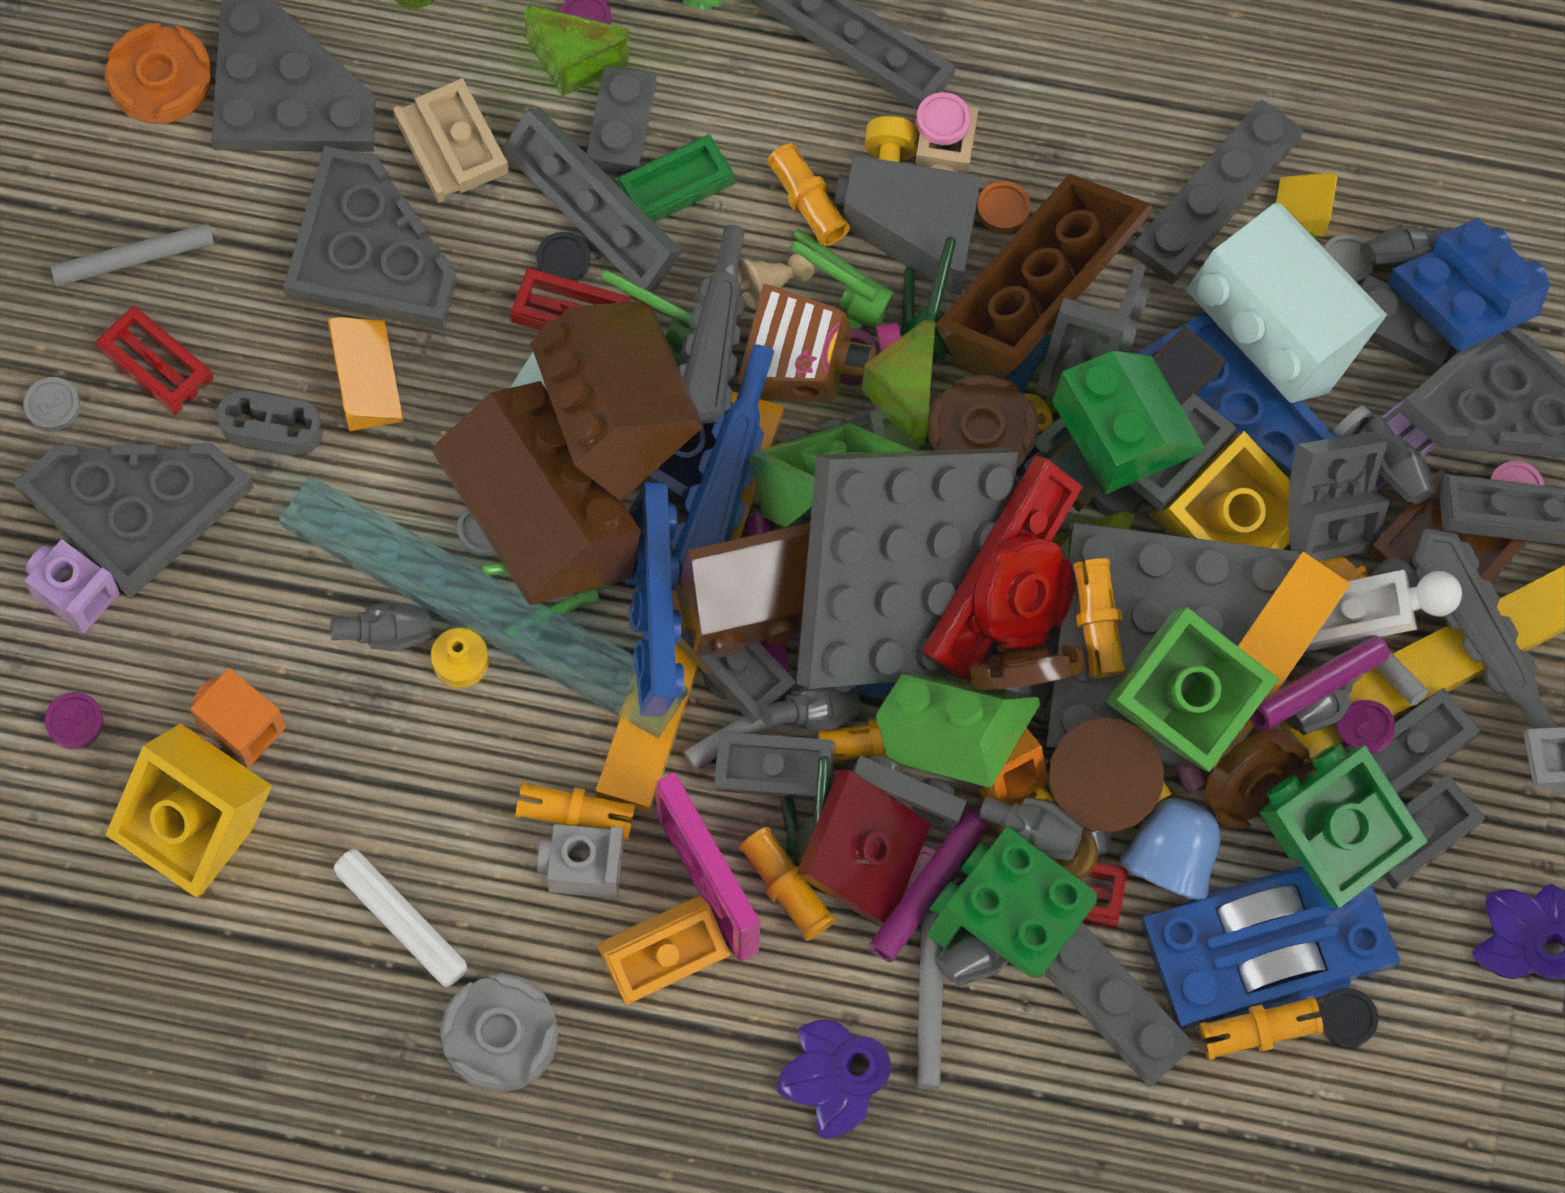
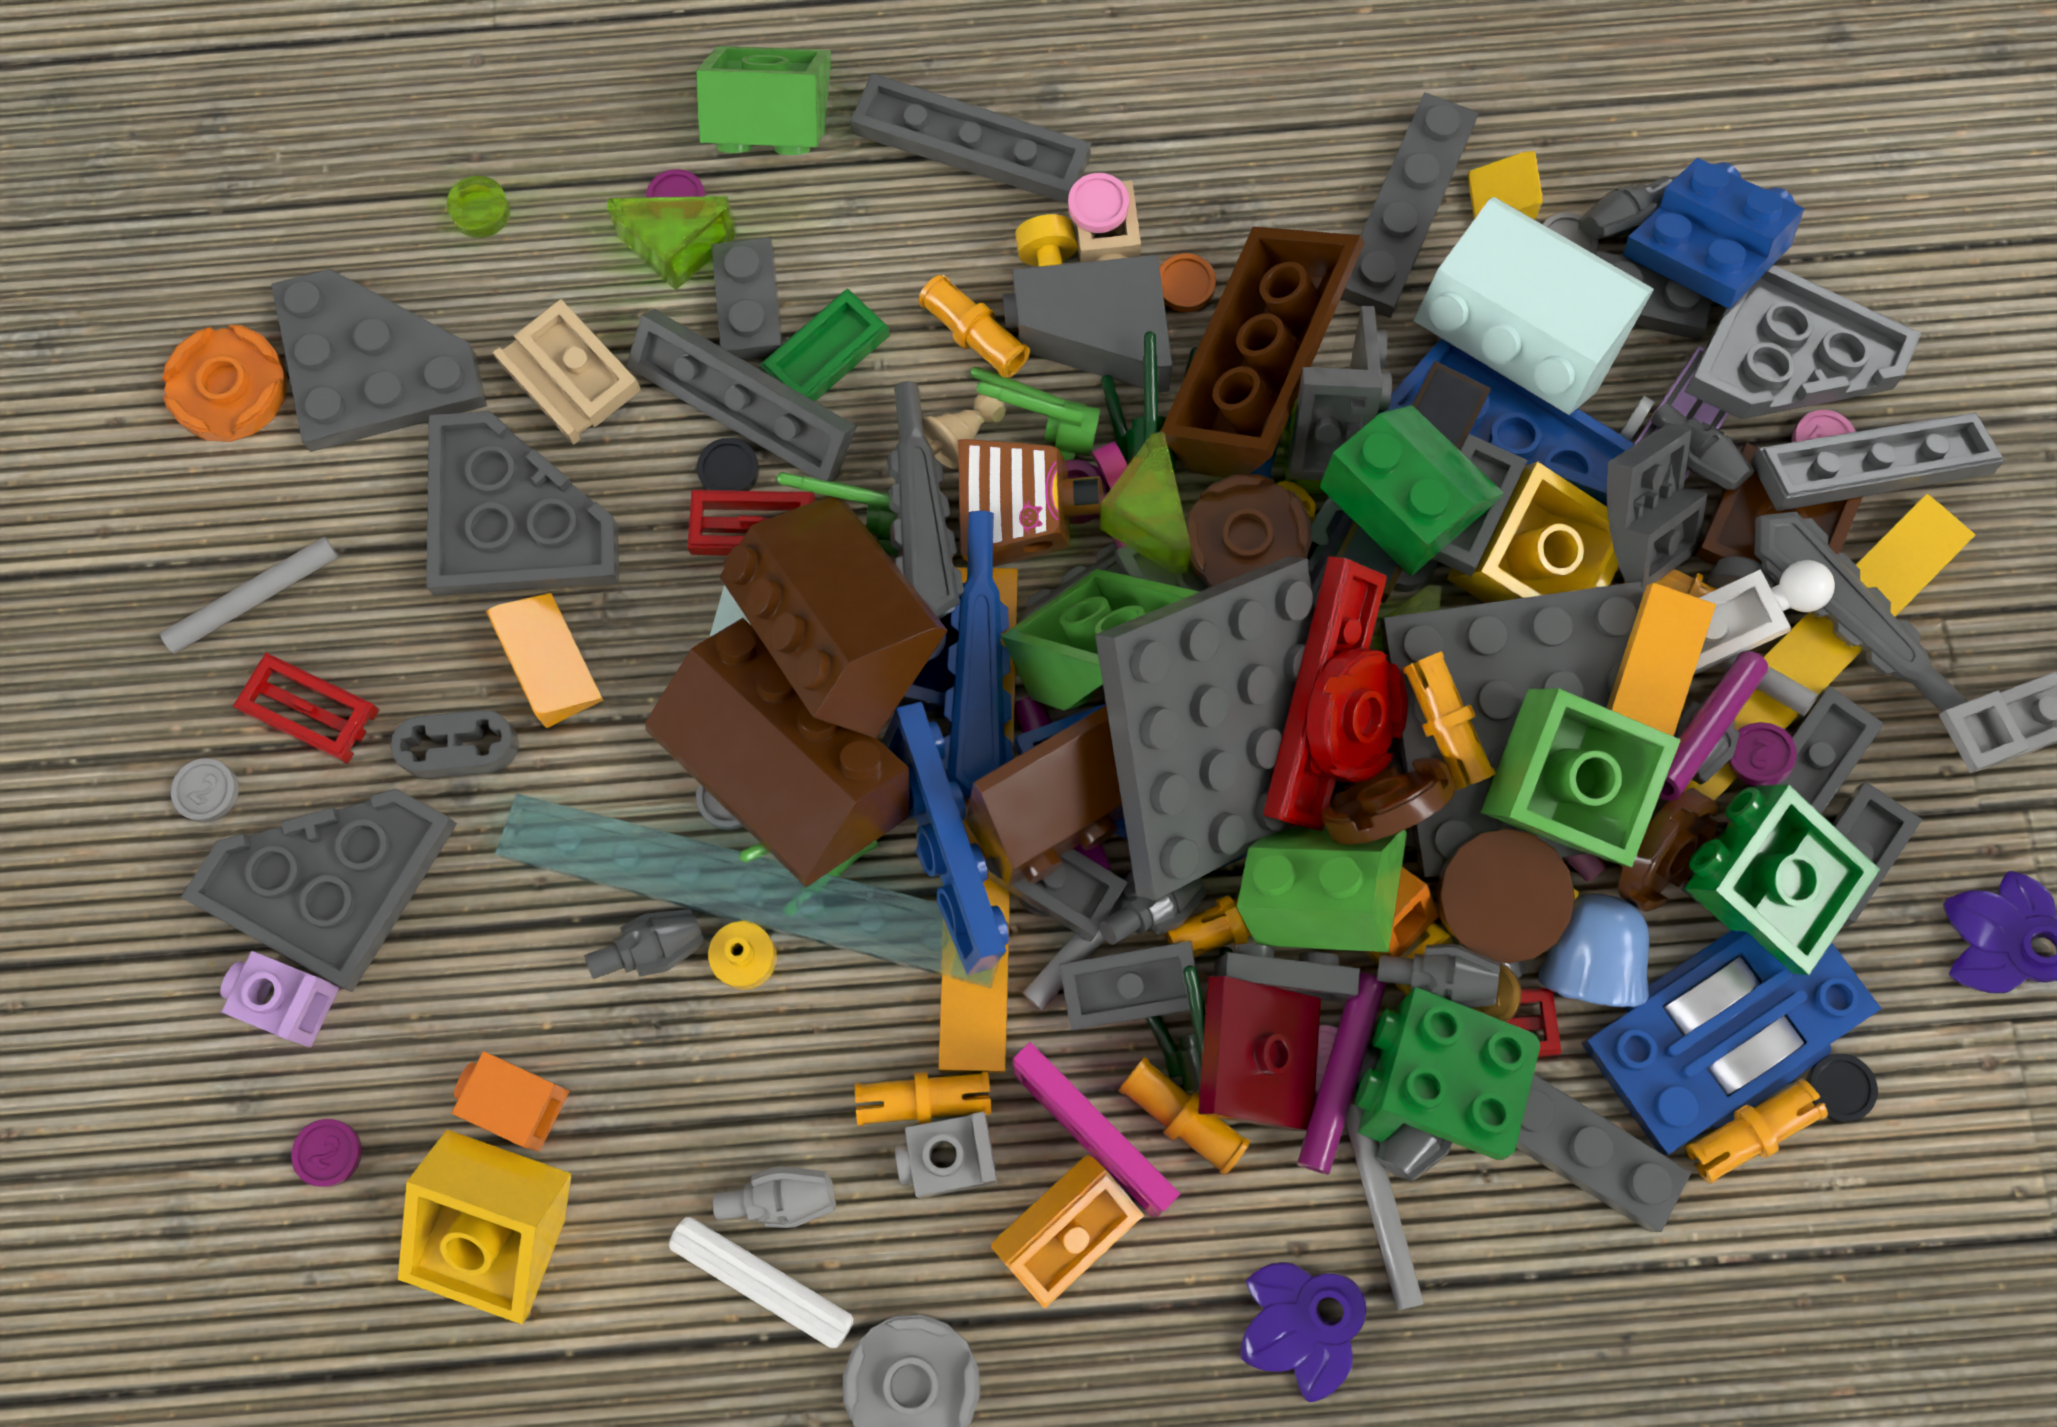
camera: 10 degrees left, 5 degrees up
(435, 855) = (779, 1197): none -> light grey piece

